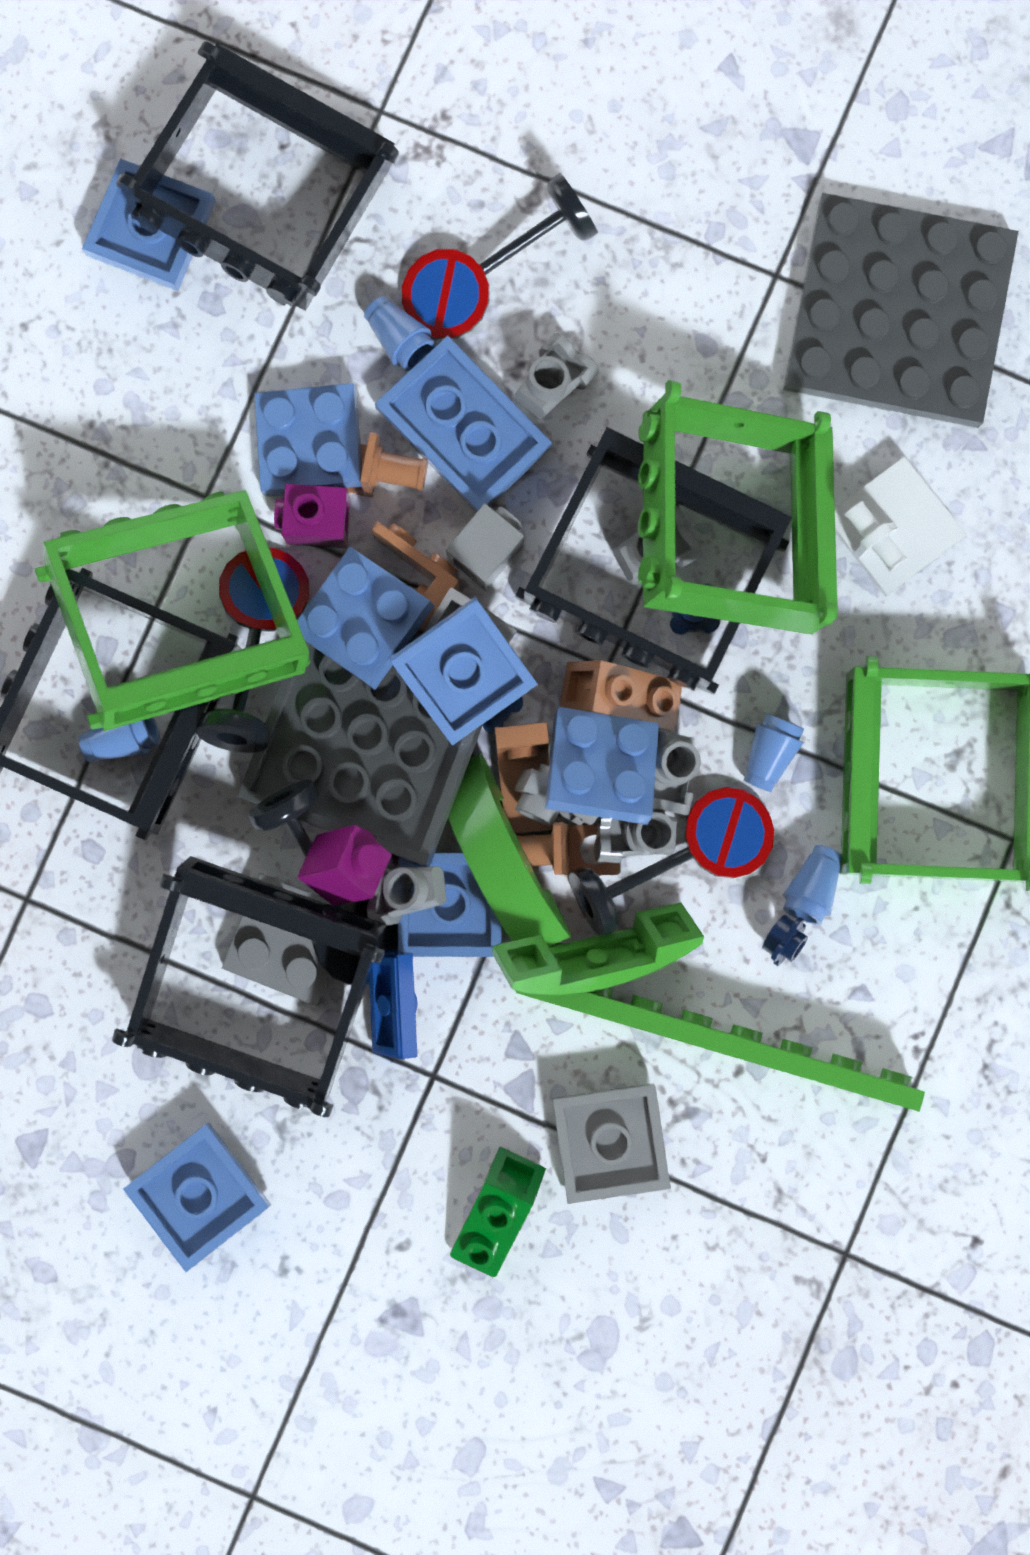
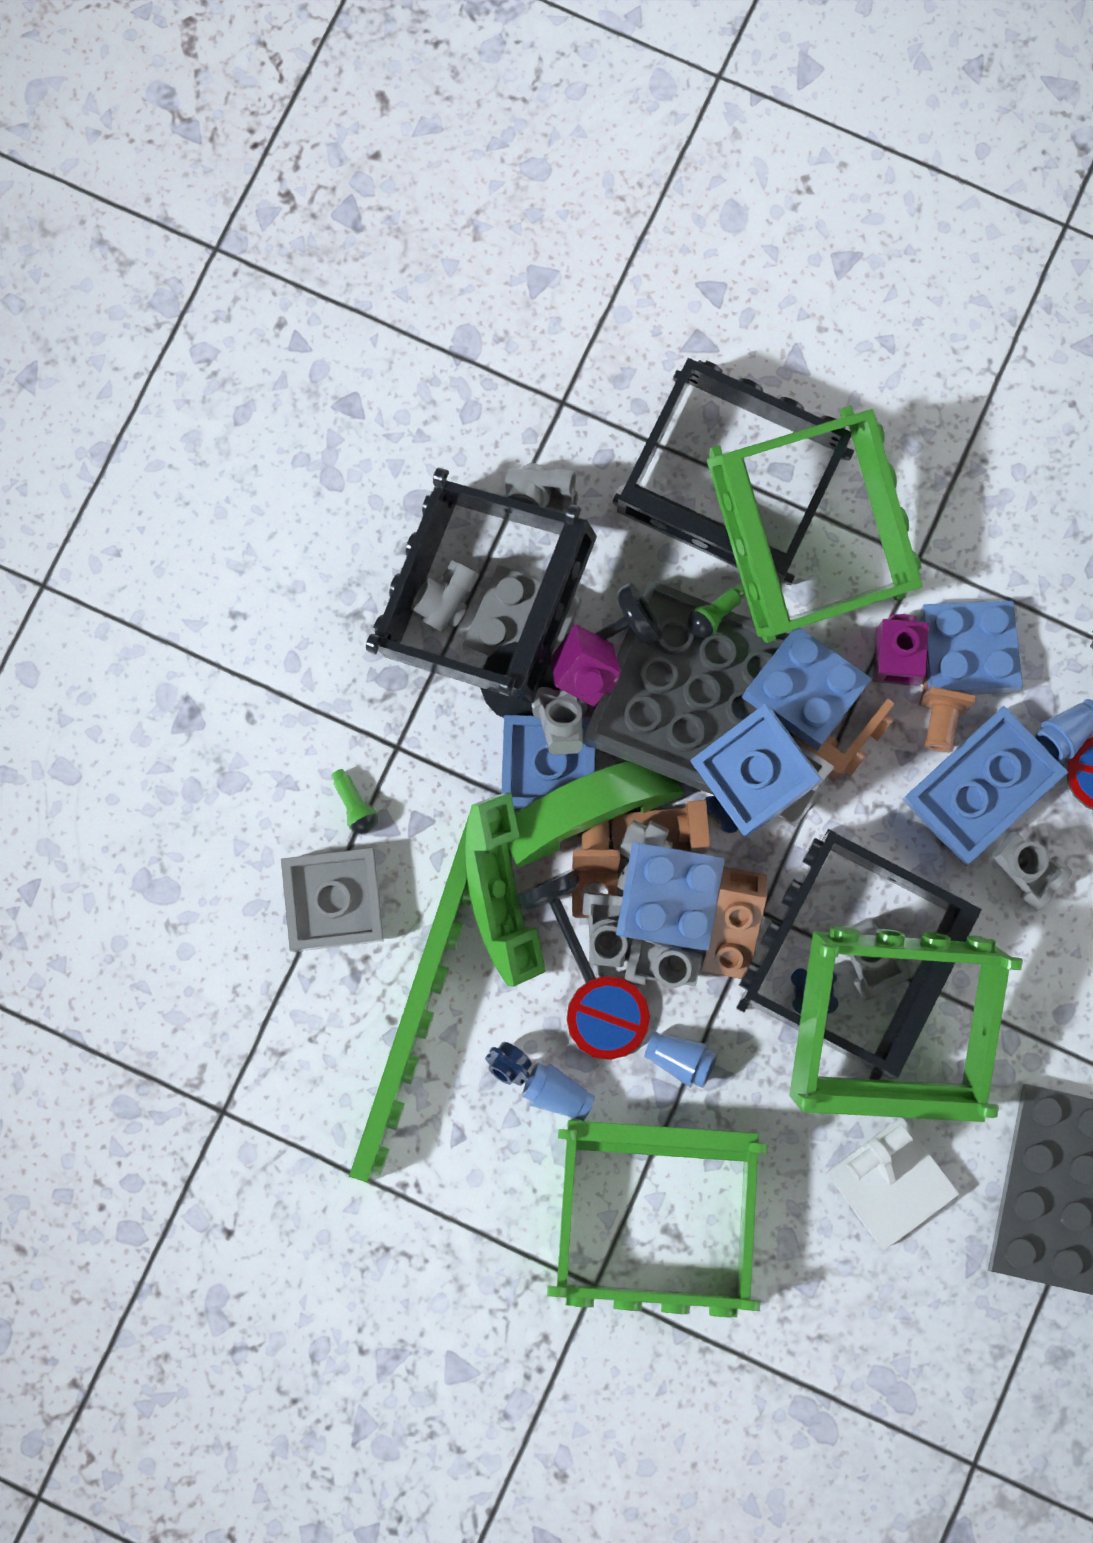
camera: 90 degrees right, 5 degrees down
(119, 742) = (699, 482): medium blue cone -> none
(130, 927) = (542, 487): none -> light grey plate
(197, 1197) = (301, 541): medium blue plate -> none
(246, 605) = (816, 591): piece -> none
(268, 1029) = (442, 602): none -> light grey plate
(285, 730) = (706, 619): none -> bright green piece
(393, 1006) = (461, 710): blue plate -> none
(486, 545) = (874, 803): light grey brick -> none
(498, 1212) = (276, 798): green bracket -> none
(515, 1114) = (360, 816): none -> bright green piece

